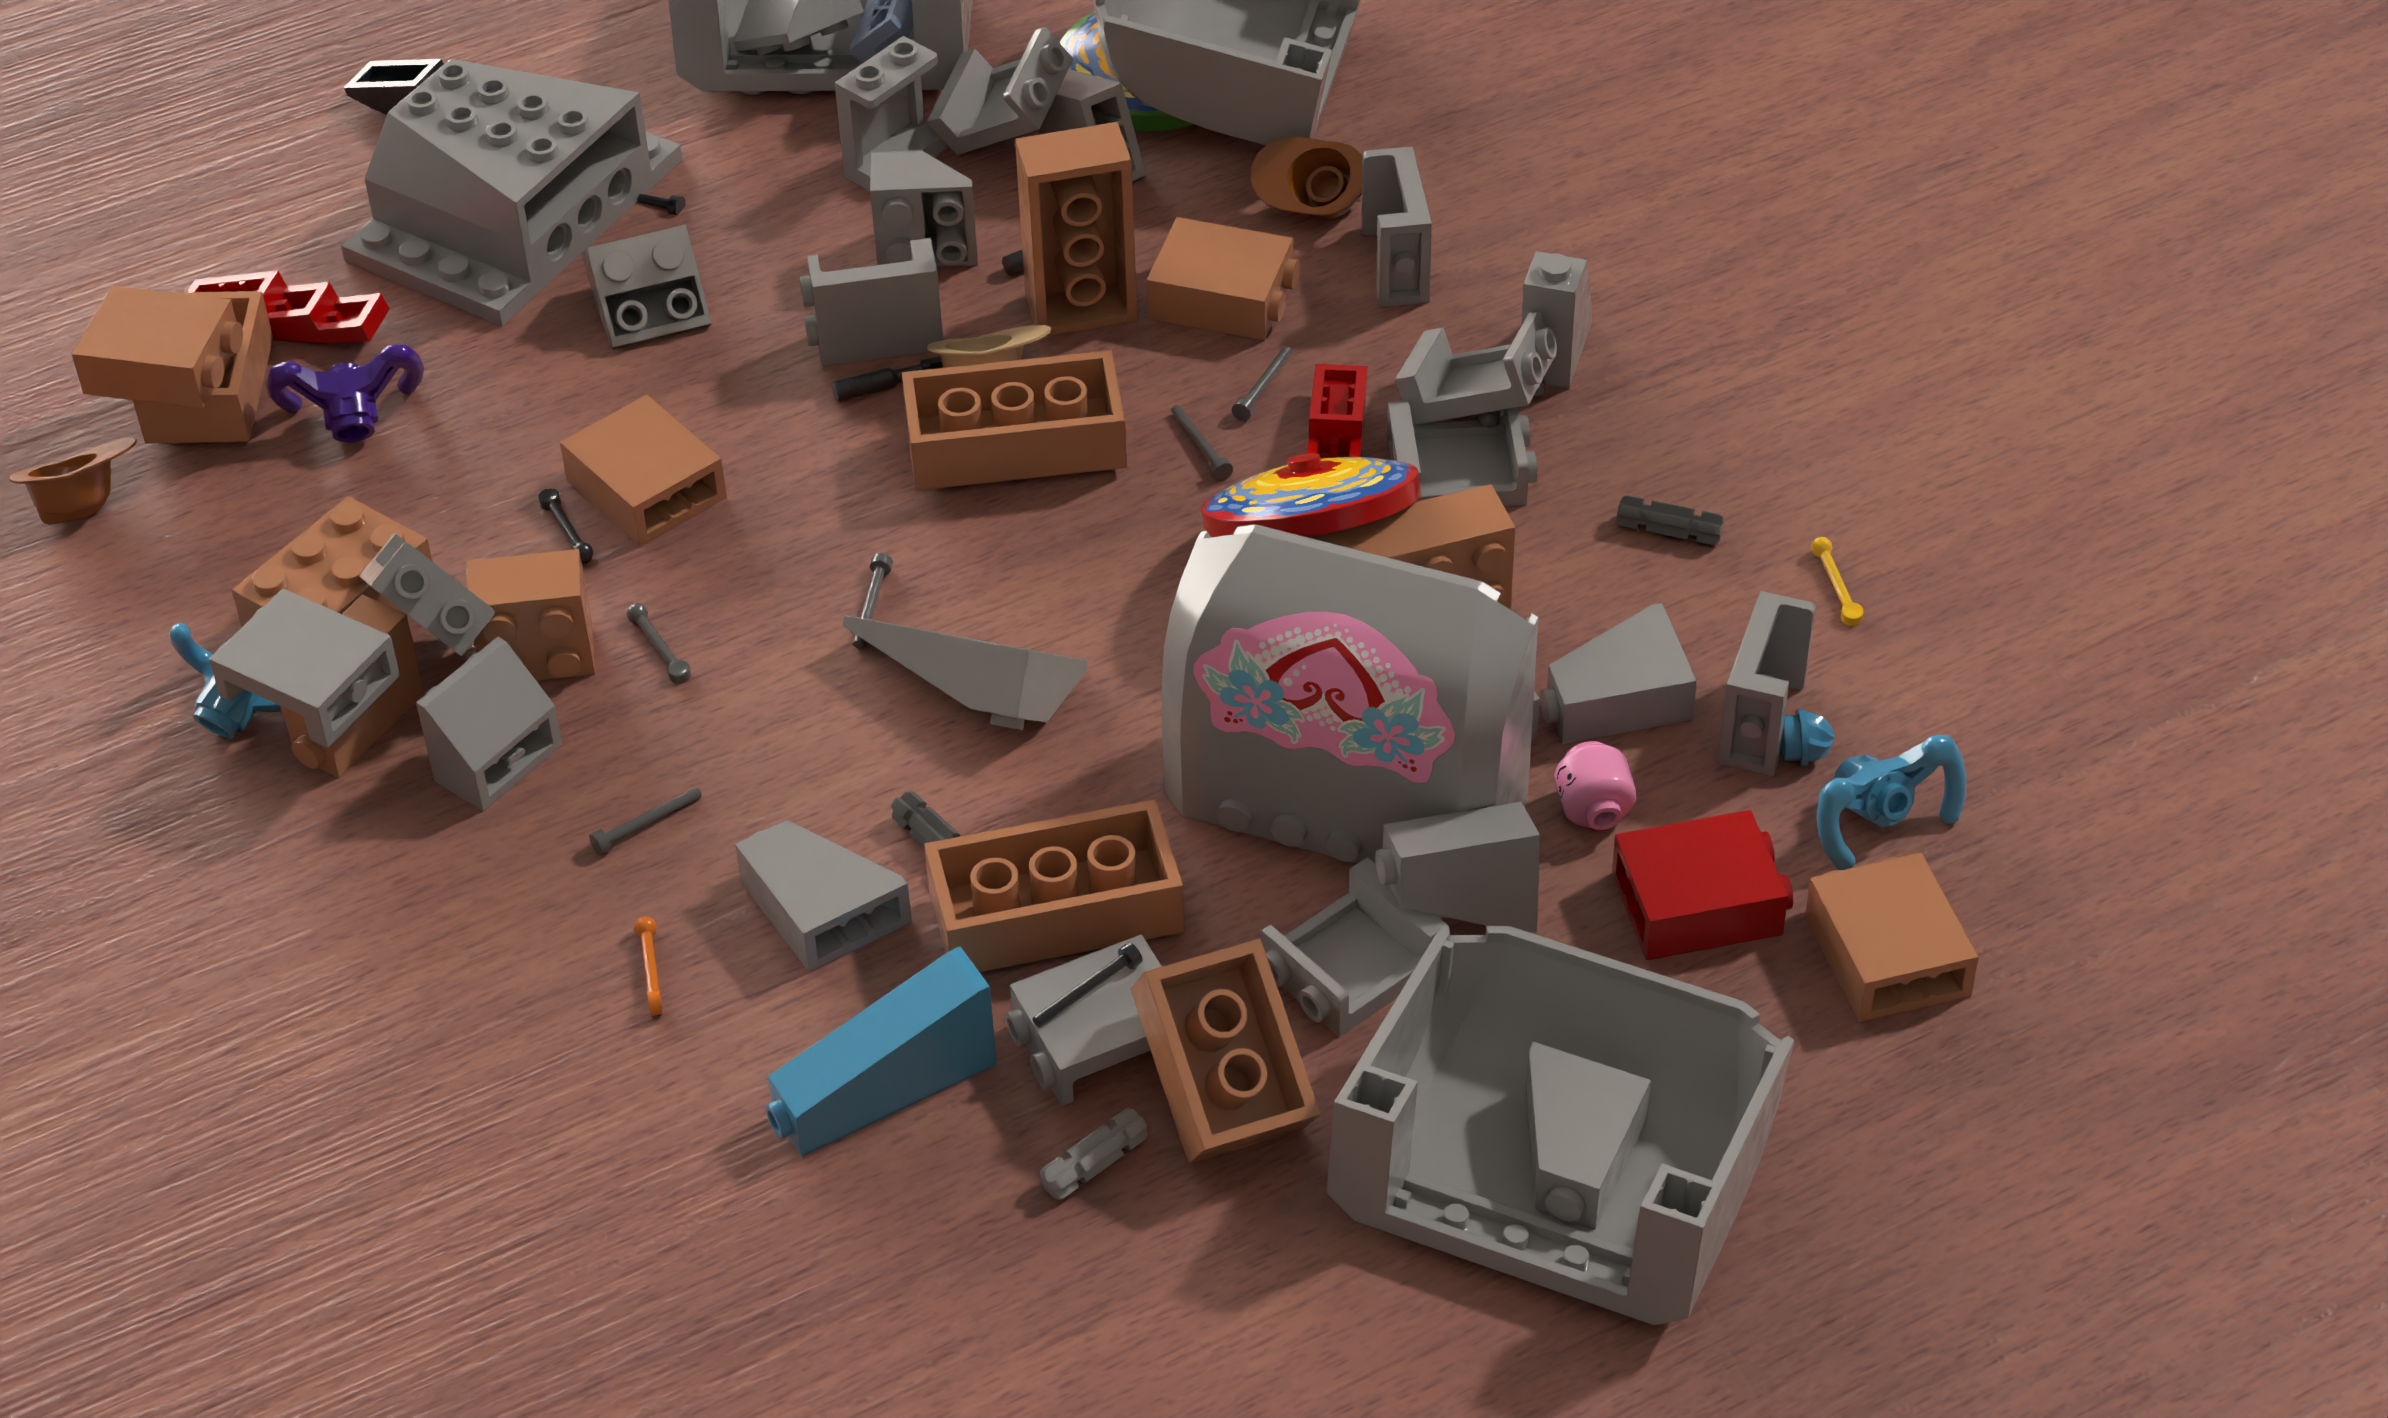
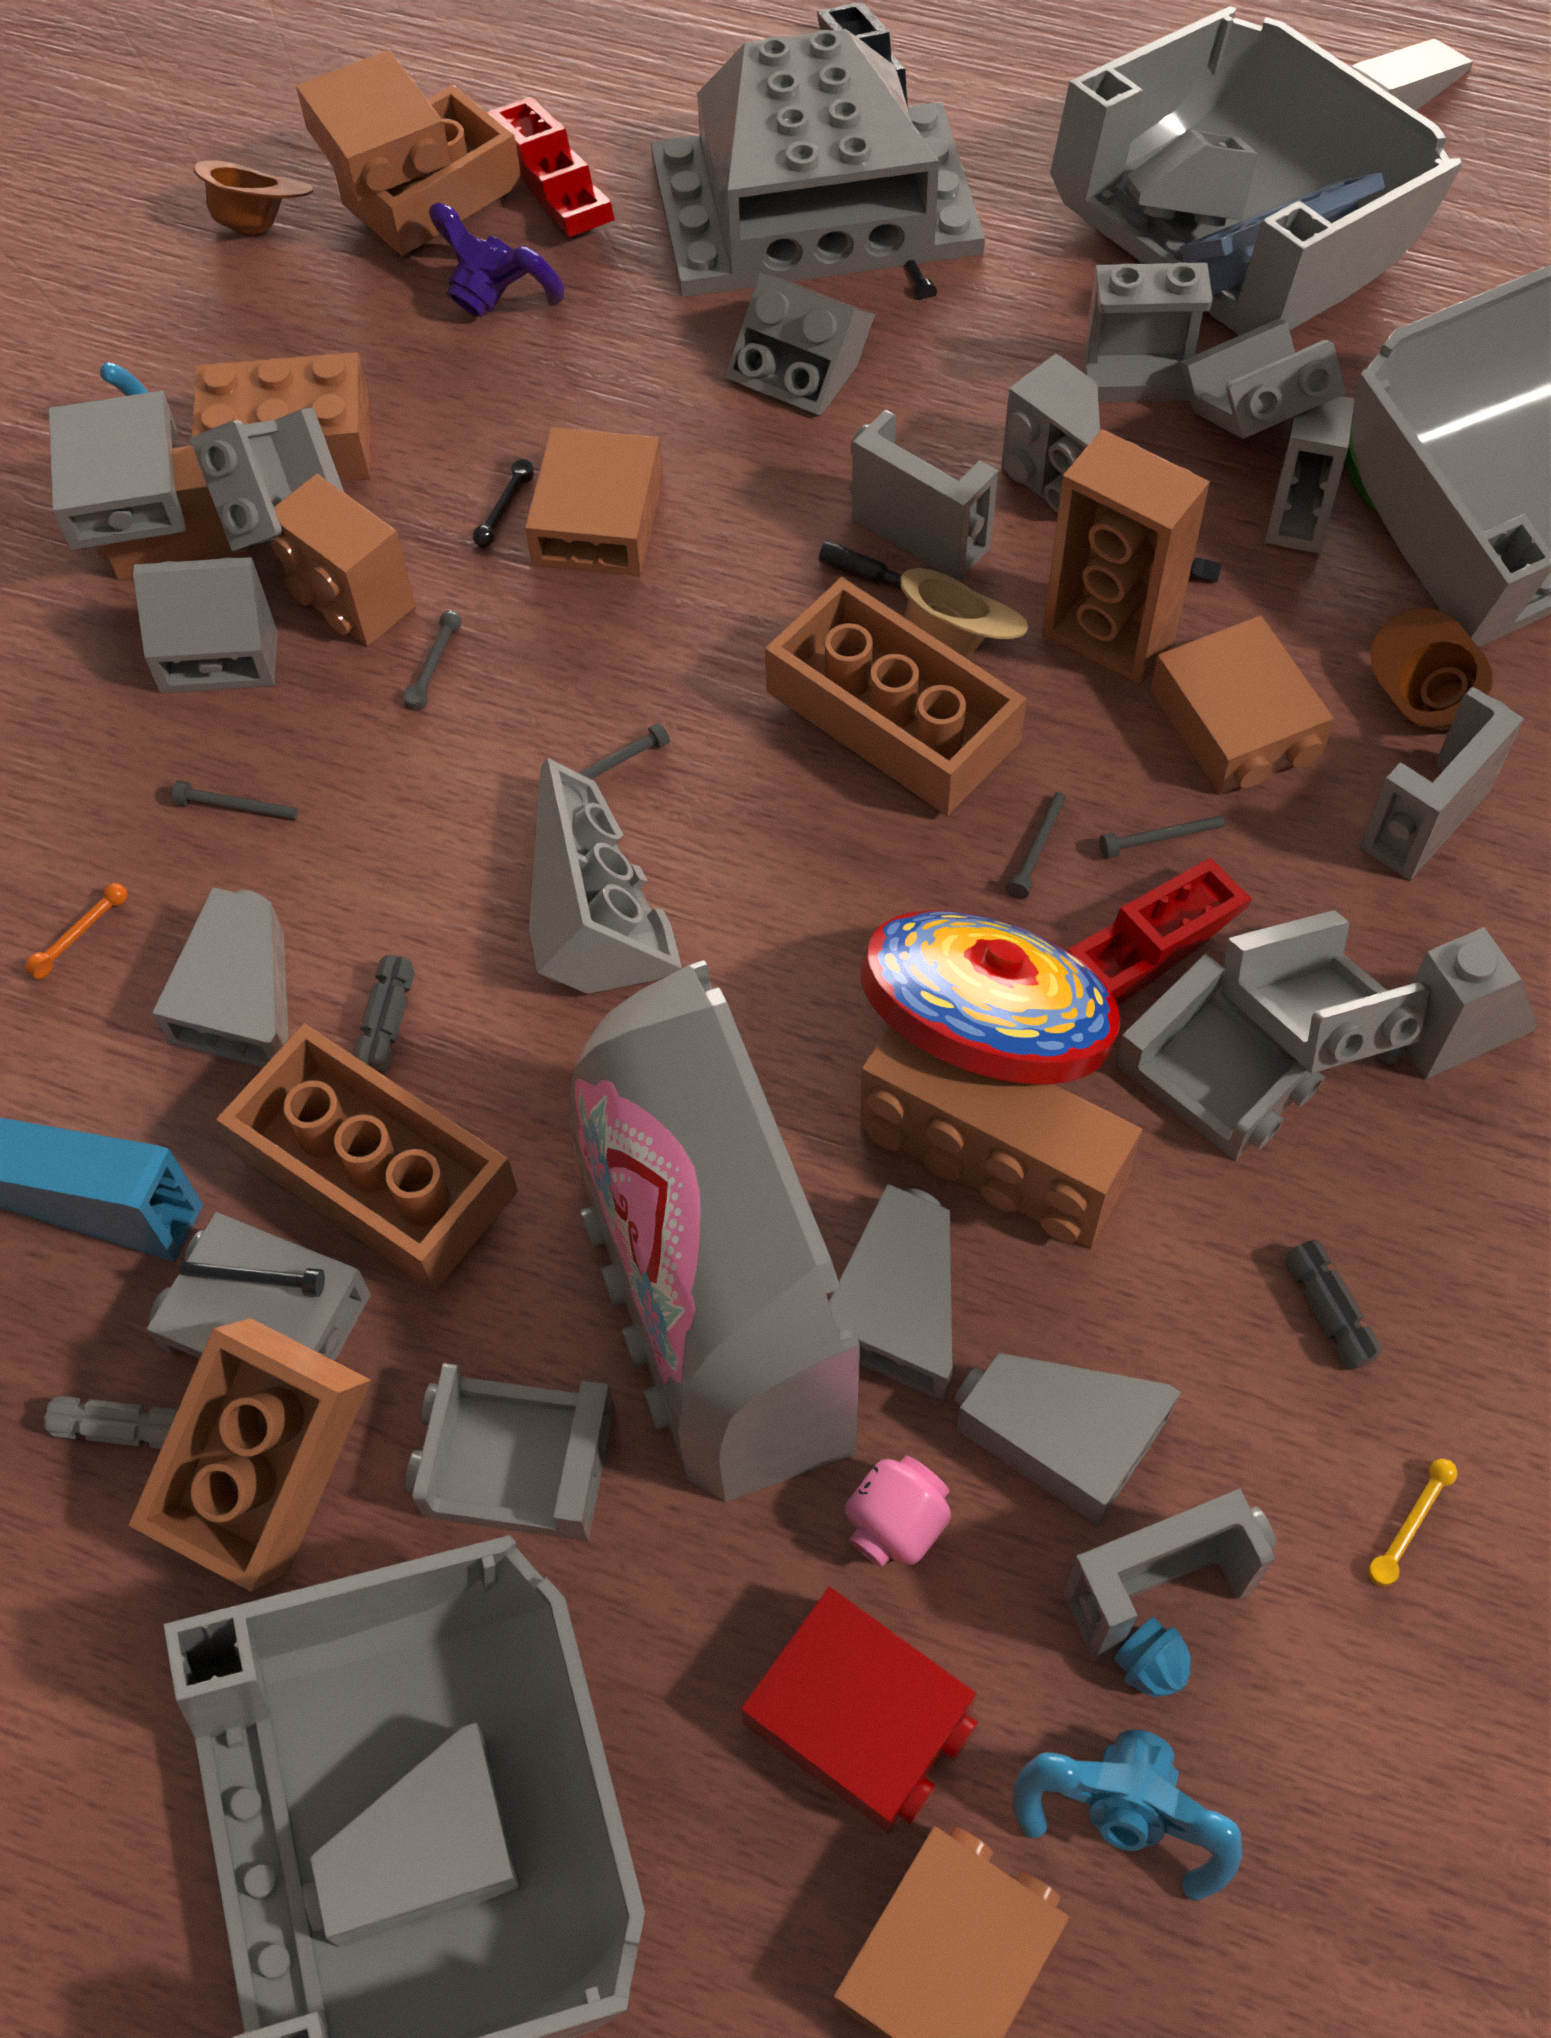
camera: 50 degrees right, 15 degrees up
(1466, 865) = (646, 1483): light grey slope -> none

